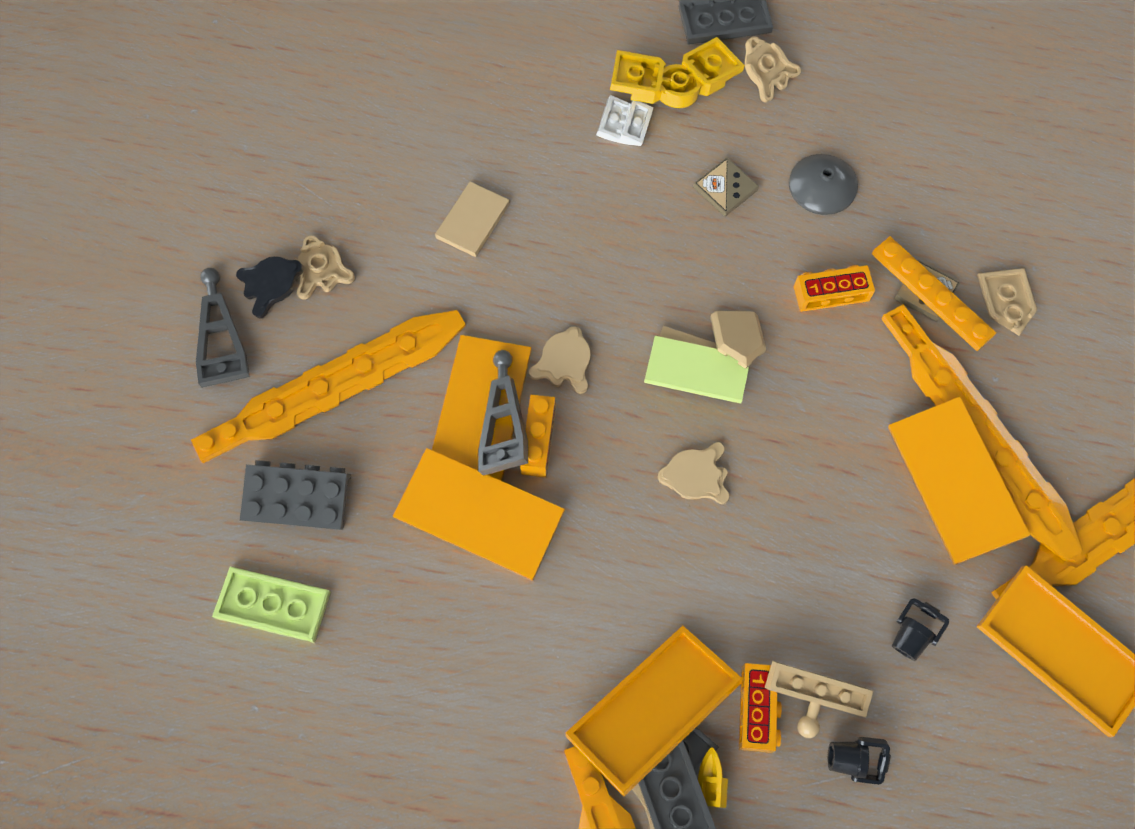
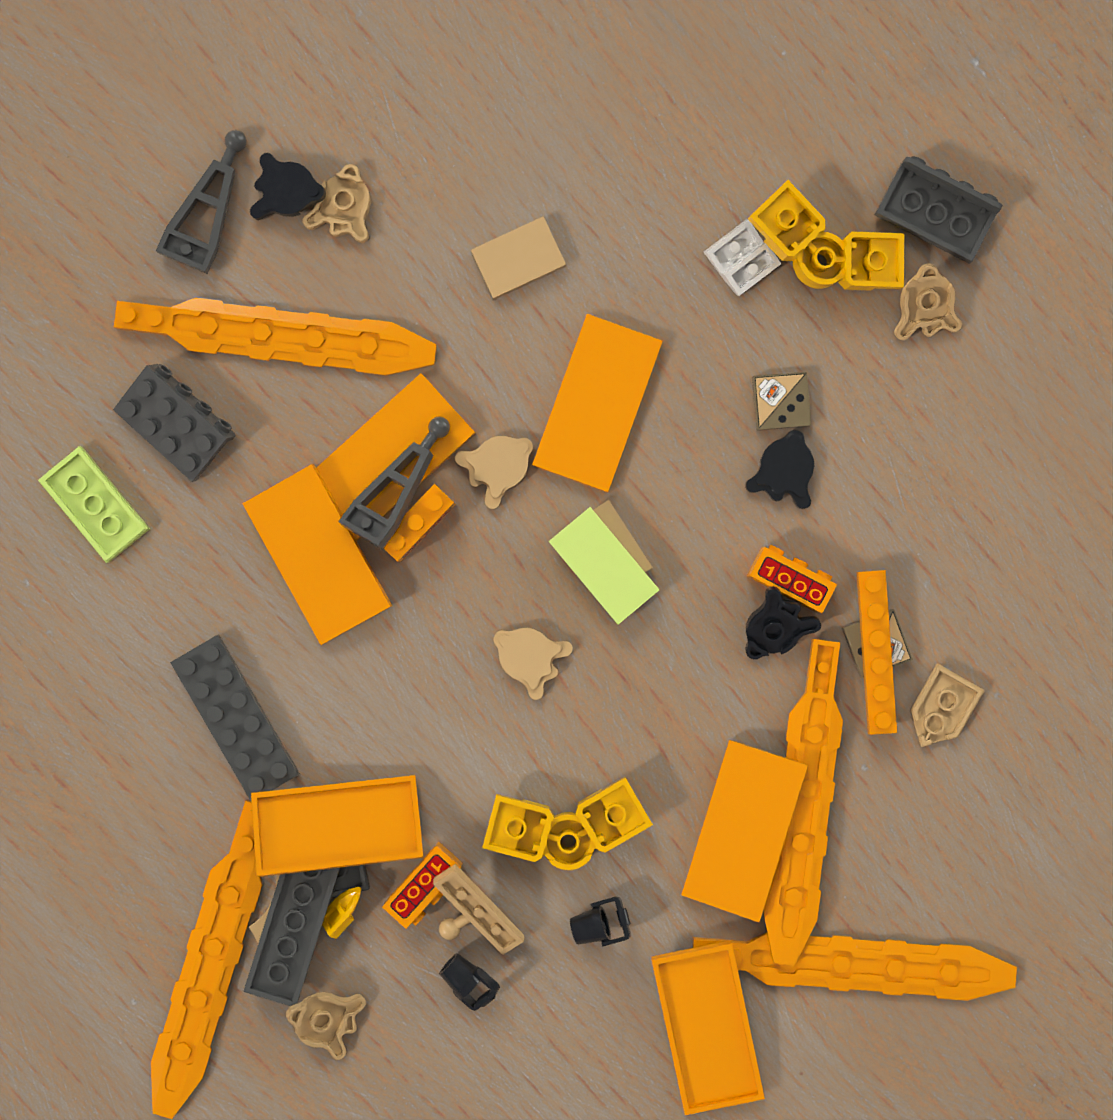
camera: 35 degrees right, 20 degrees up
(505, 689) = (234, 717): none -> dark grey plate
(603, 273) = (597, 403): none -> light orange tile
(738, 335) = (665, 562): tan tile -> none
(766, 225) = (784, 469): none -> black tile
(823, 193) = (859, 470): dark grey dish -> none
(848, 556) = (533, 831): none -> yellow plate
(851, 324) = (776, 626): none -> black tile

